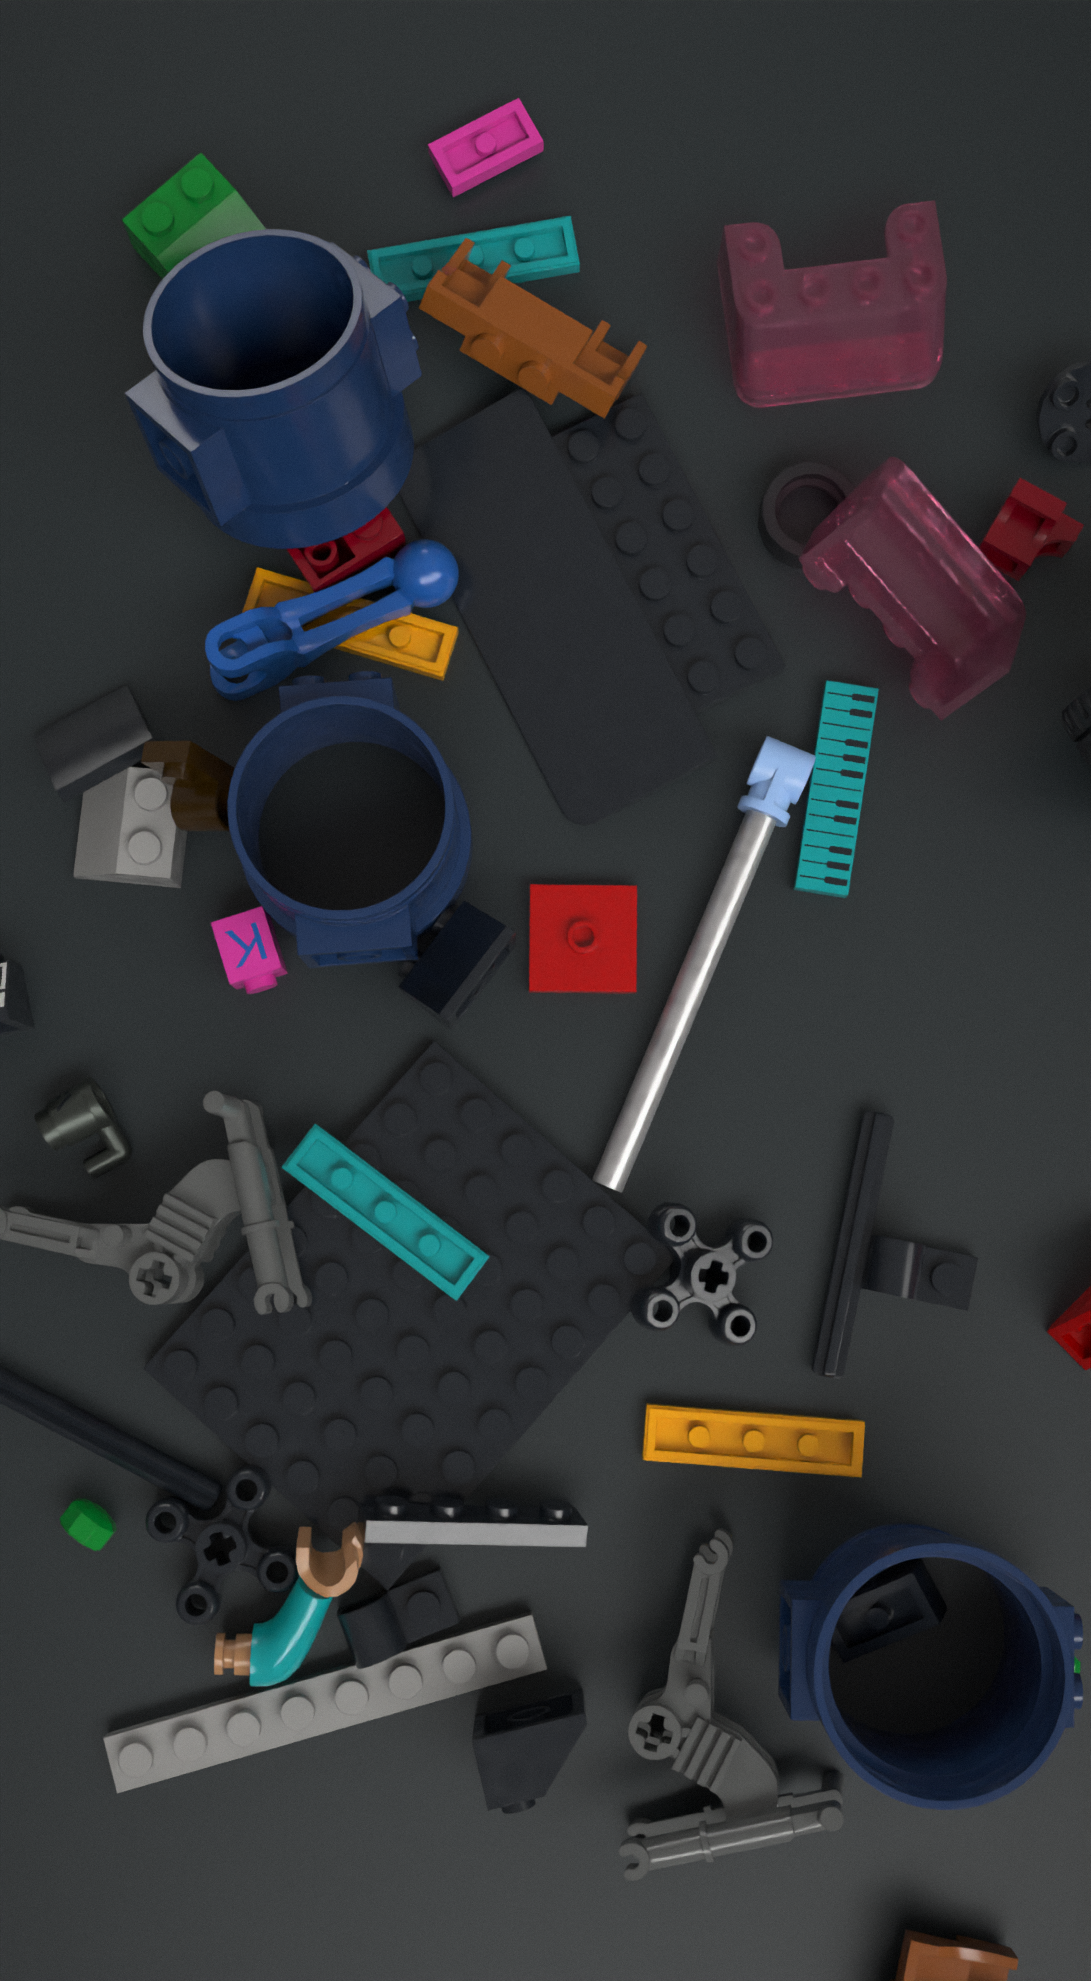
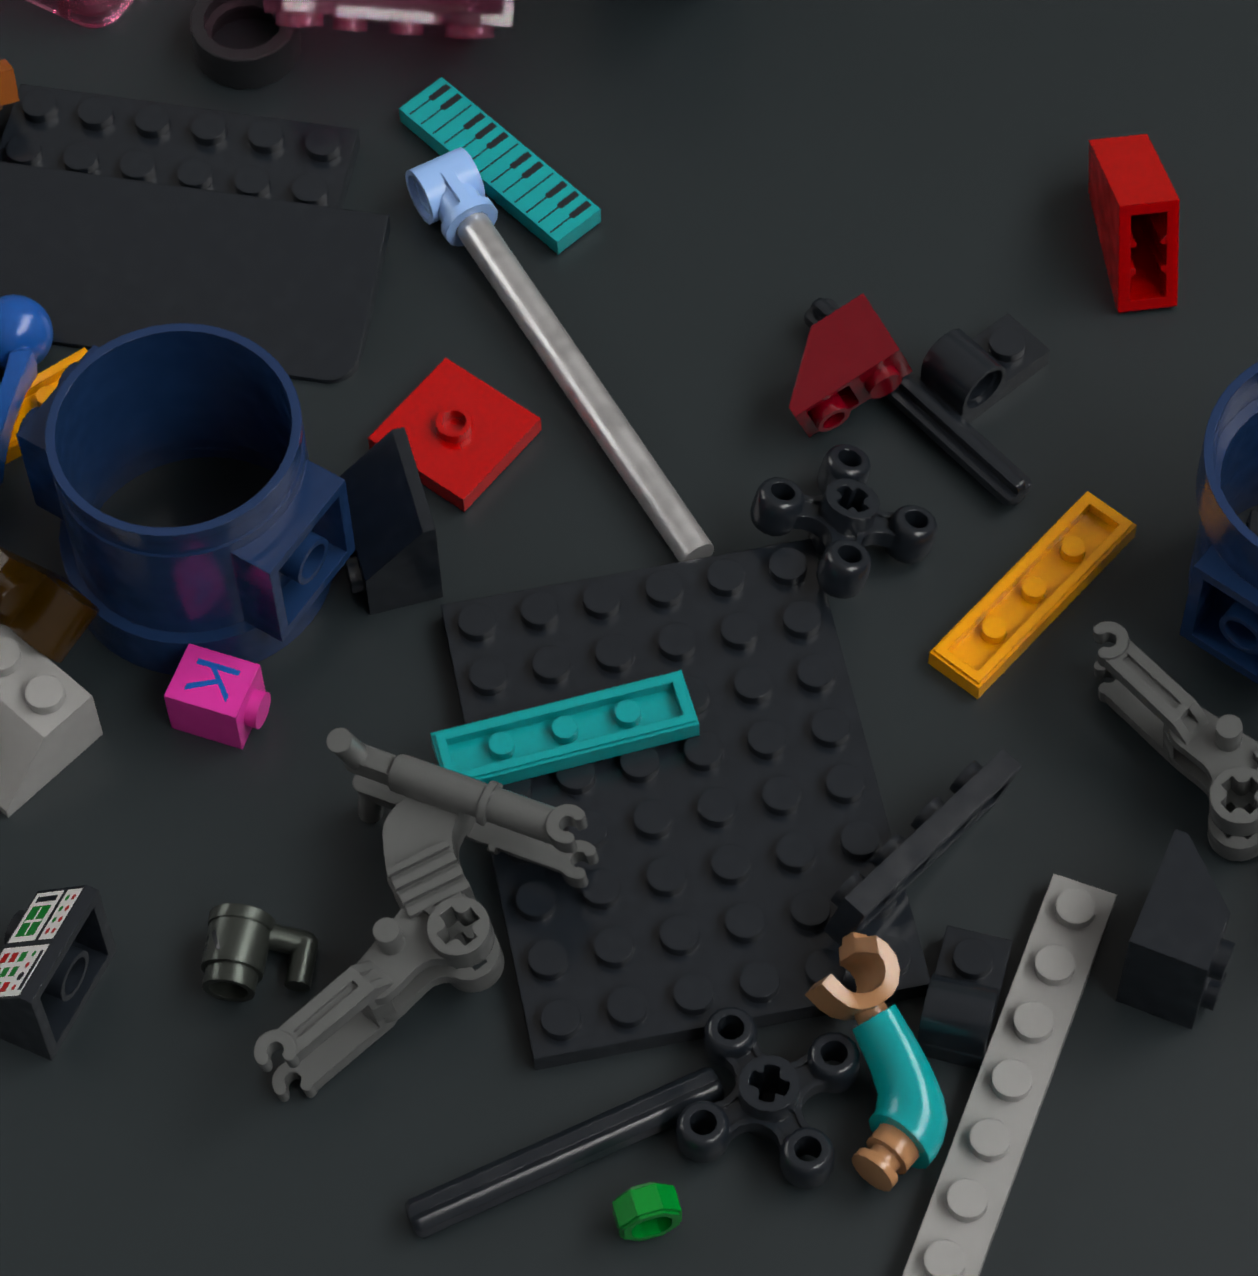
camera: 50 degrees left, 25 degrees down
(834, 1181) = (844, 365): none -> dark red slope

